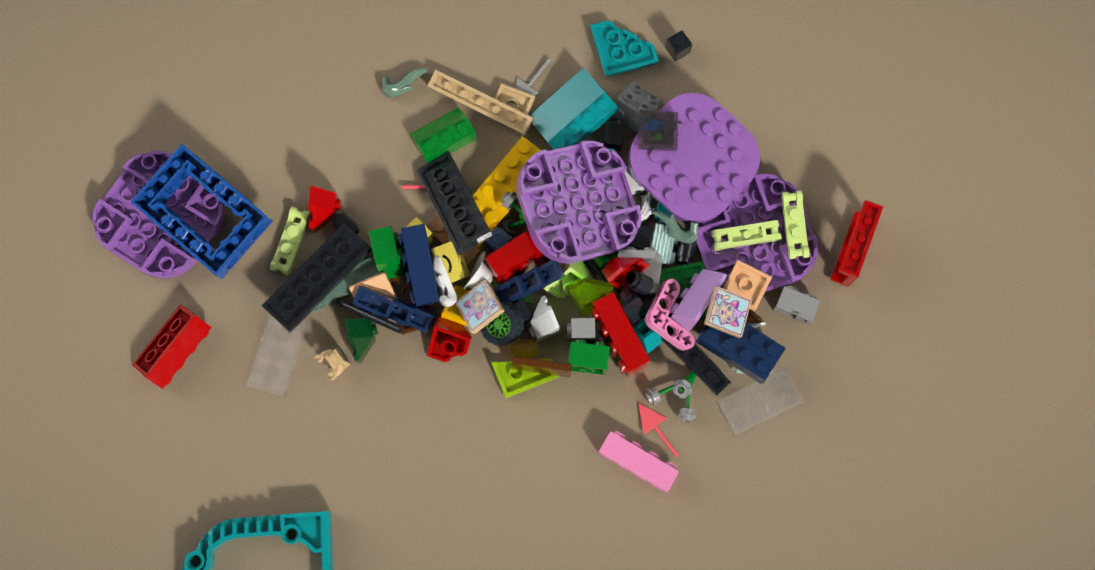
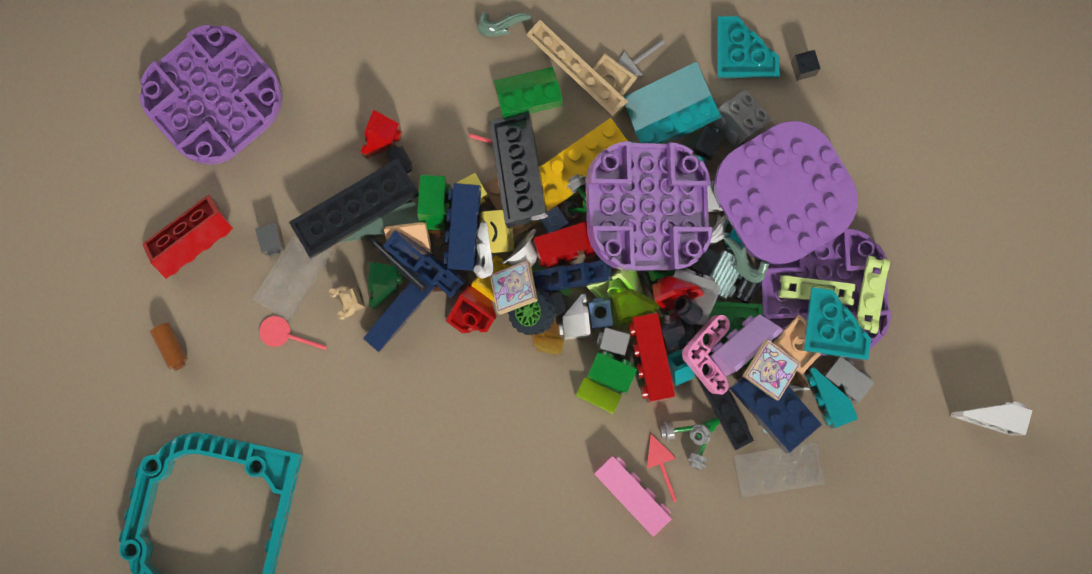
camera: 20 degrees right, 5 degrees up
(164, 184) = (224, 64): blue brick -> none
(182, 449) = (169, 346): none -> dark orange brick
(248, 327) = (270, 239): none -> dark grey brick
(276, 408) = (276, 331): none -> coral piece
(290, 241) = (338, 160): yellowish green plate -> none
(382, 362) = (397, 315): none -> dark blue slope
(518, 381) = (538, 370): lime wing -> none
(541, 366) = (560, 369): reddish brown tile -> none
(563, 318) = (597, 323): none -> medium blue brick
(583, 383) = (598, 395): none -> lime slope
(658, 130) = (755, 154): clear smoke tile -> none
(770, 262) = (833, 328): none -> teal plate
(791, 329) = (835, 404): none -> teal slope
(856, 244) = (932, 333): red window -> none
(940, 300) = (1006, 418): none -> white slope

